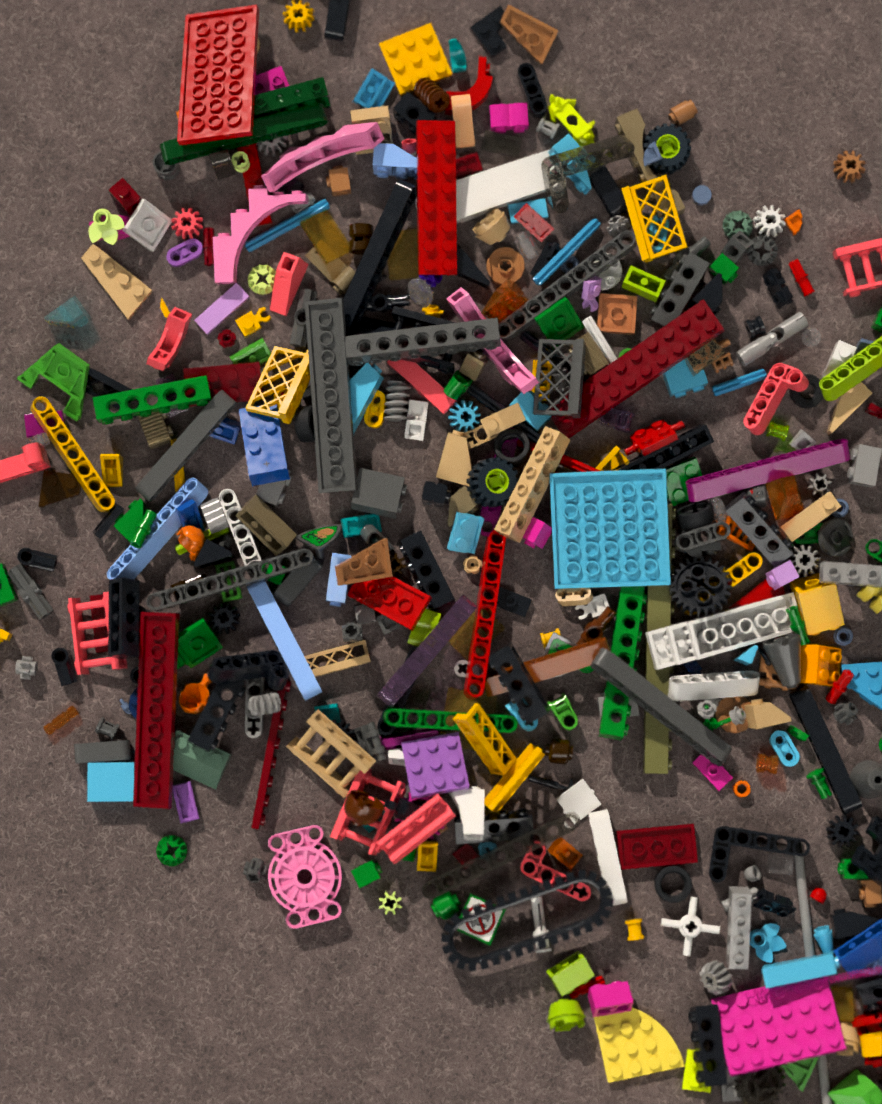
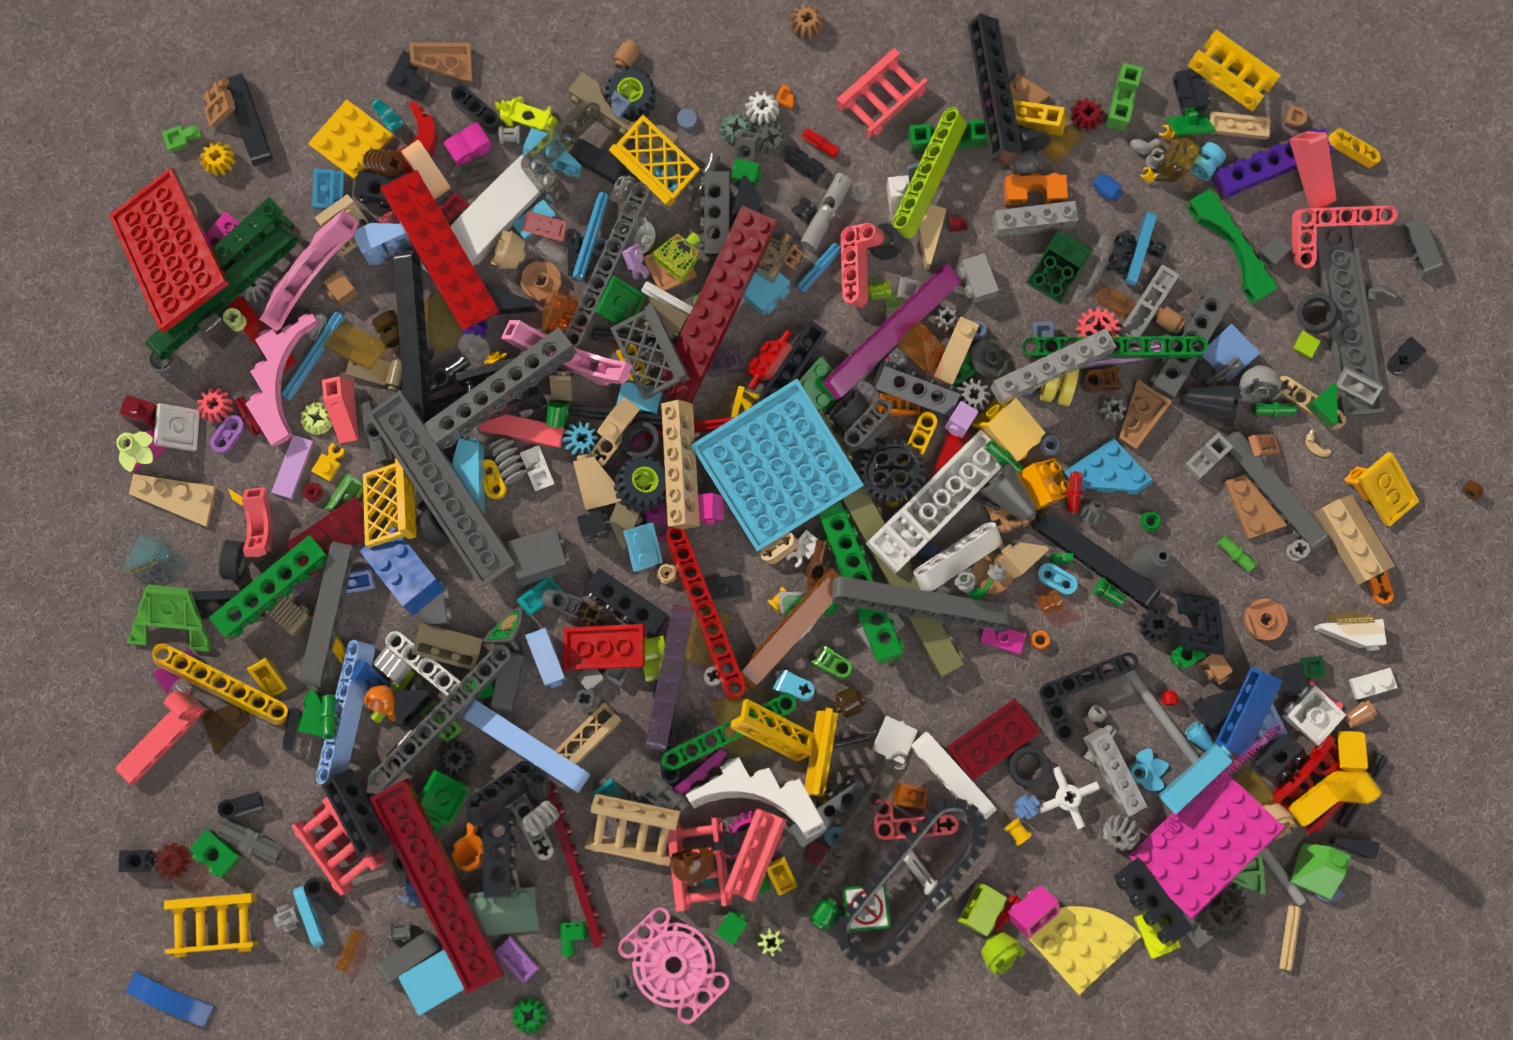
camera: 30 degrees left, 5 degrees down
(44, 677) = (309, 917): none -> medium azure beam
(134, 359) = (232, 560): none -> black tyre
(238, 806) = (572, 933): none -> green piece
(366, 565) = (564, 629): medium nougat wing -> none
(435, 765) = (739, 783): medium lavender plate -> none
(526, 712) = (769, 647): black brick -> none
(629, 309) = (678, 256): none -> torso
(643, 284) = (678, 223): lime brick -> none
(652, 914) = (1027, 806): none -> medium blue gear
(747, 656) = (974, 512): medium azure slope -> none
(781, 905) = (1140, 729): black hinge -> none

